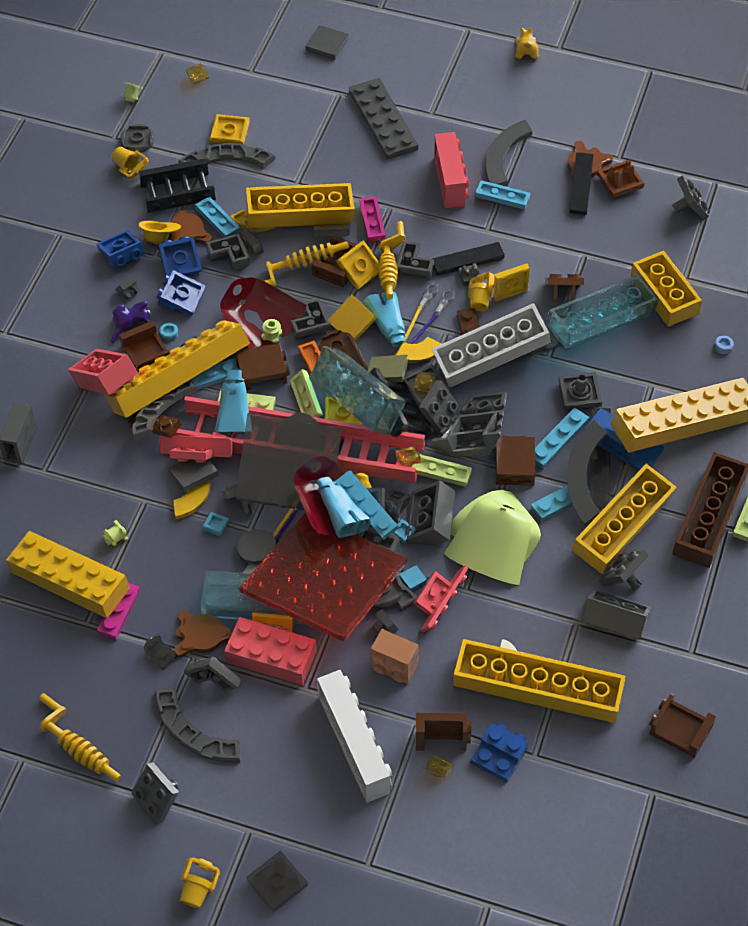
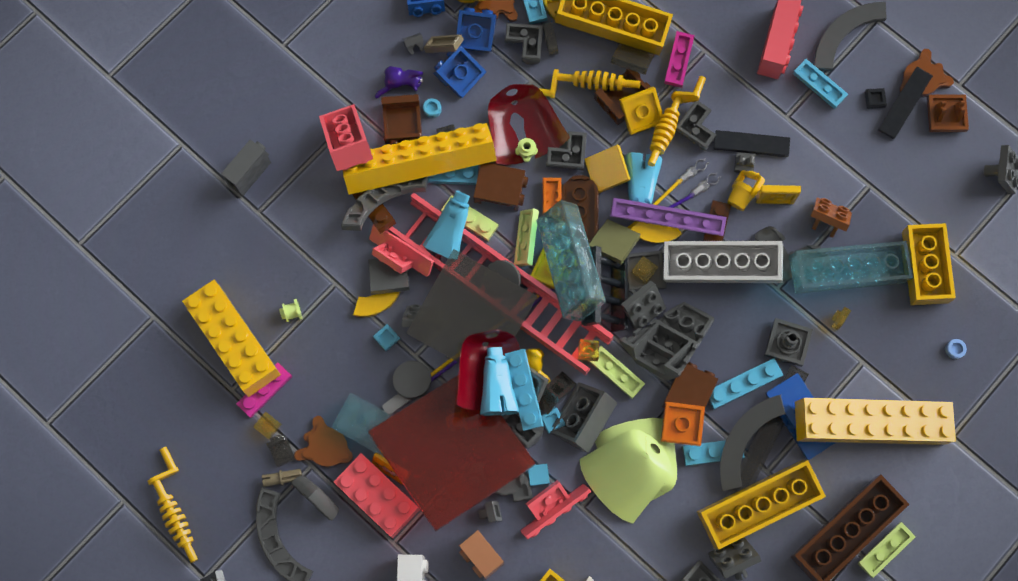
camera: 25 degrees right, 20 degrees up
(136, 636) = (267, 425): none -> clear yellow plate
(156, 276) = (443, 43): none -> dark tan tile
(169, 674) = (280, 477): none -> dark tan axle
(423, 332) = (668, 216): none -> medium lavender tile
(522, 481) = (682, 424): none -> orange tile
(555, 190) = (875, 98): none -> black tile
(613, 356) = (839, 318): none -> clear yellow plate

